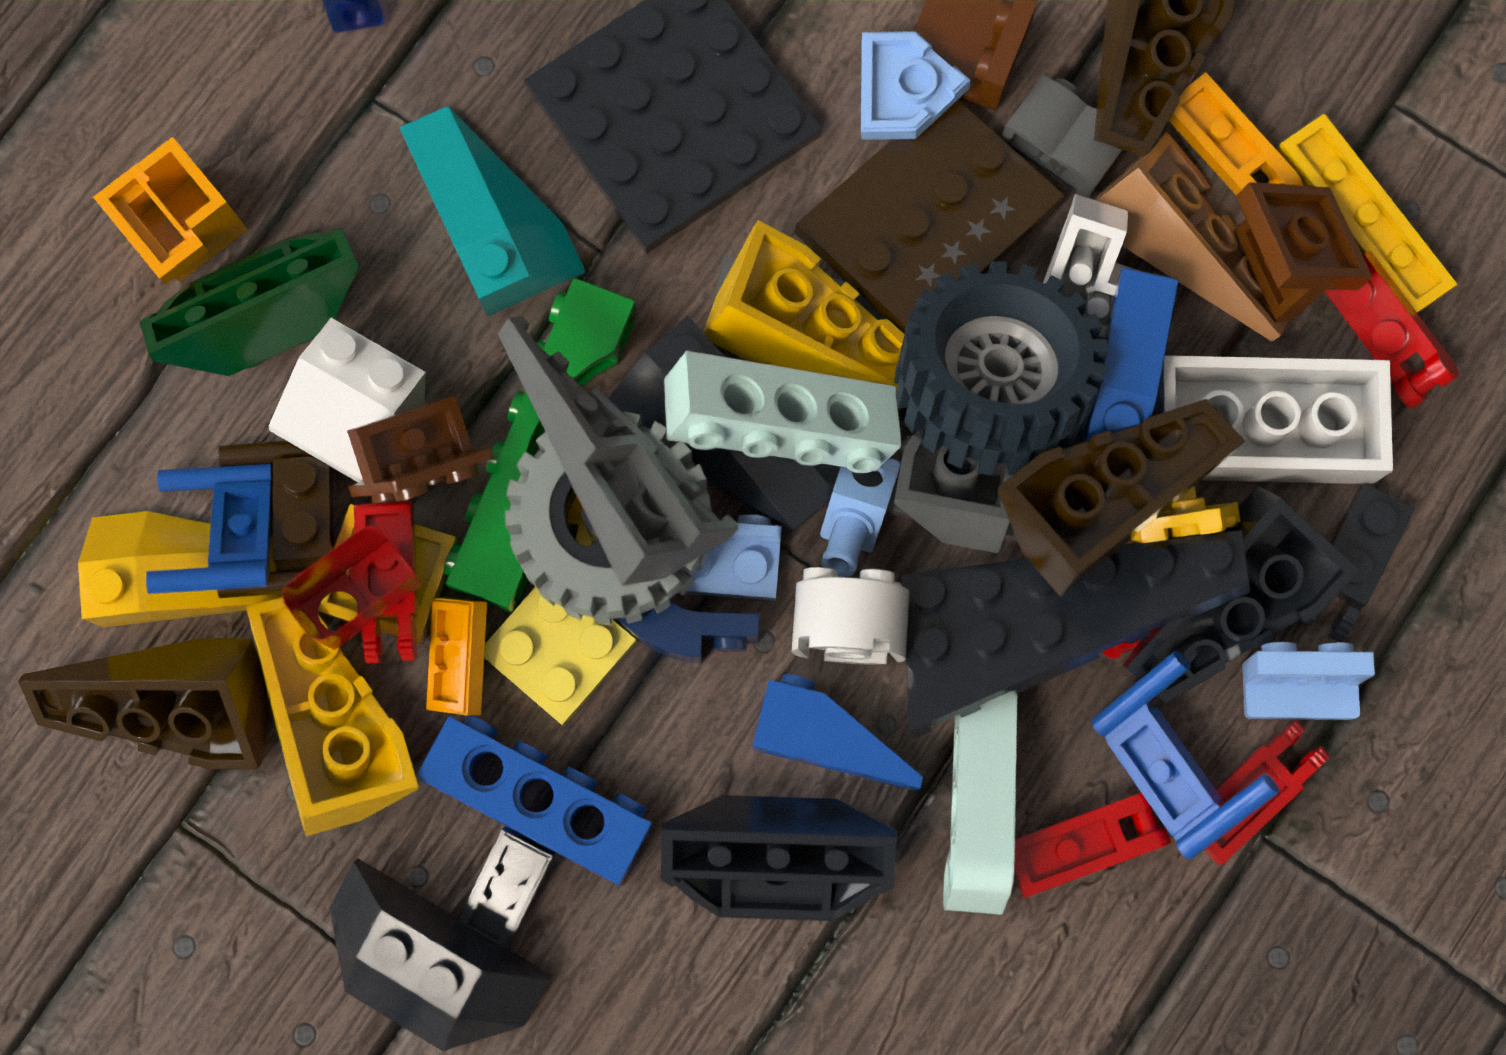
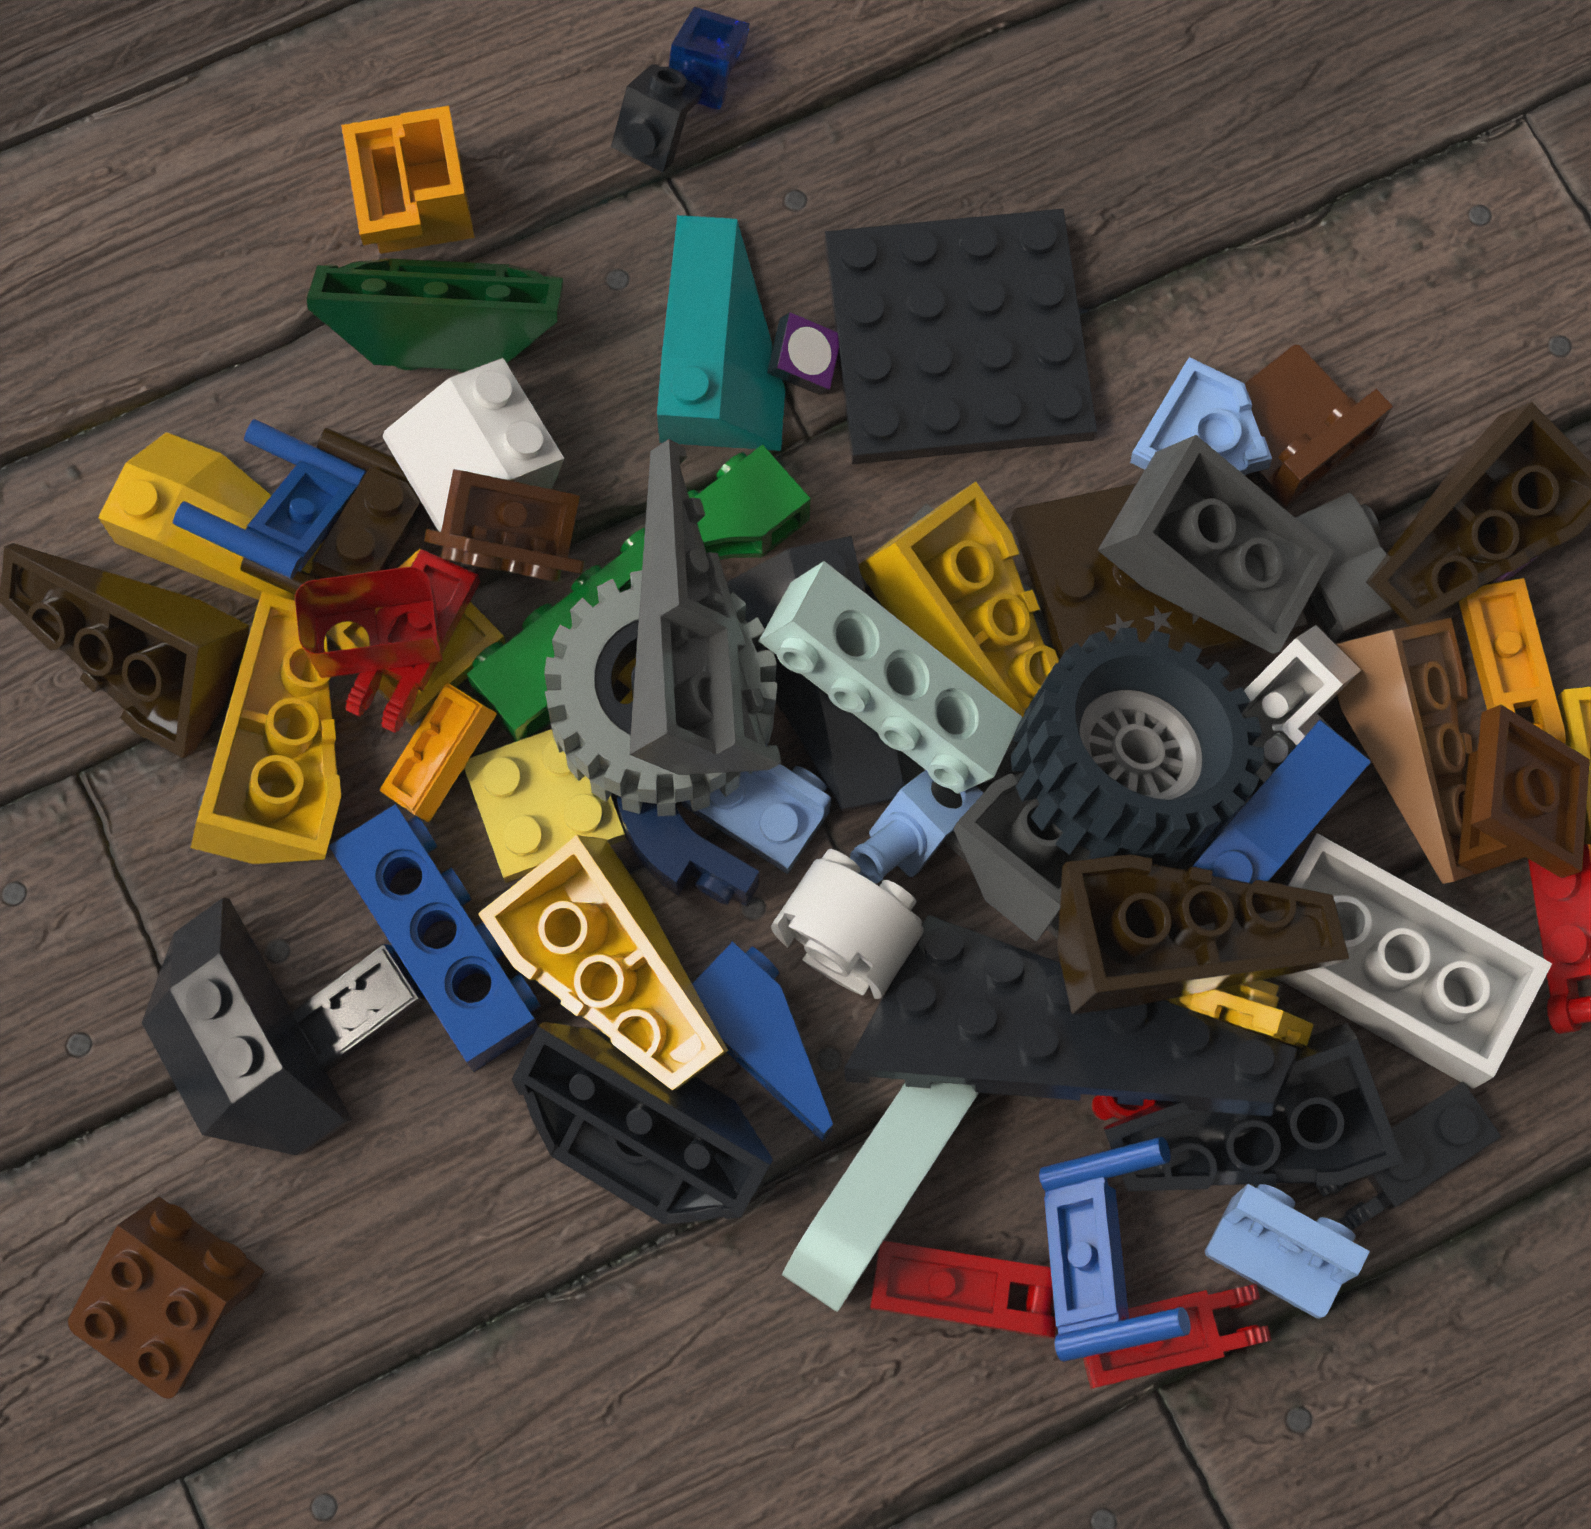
camera: 25 degrees right, 5 degrees down
(338, 56) = (655, 115): none -> black bracket
(562, 186) = (804, 353): none -> tile
(674, 743) = (599, 949): none -> yellow wedge
(967, 171) = (1216, 545): none -> dark grey slope

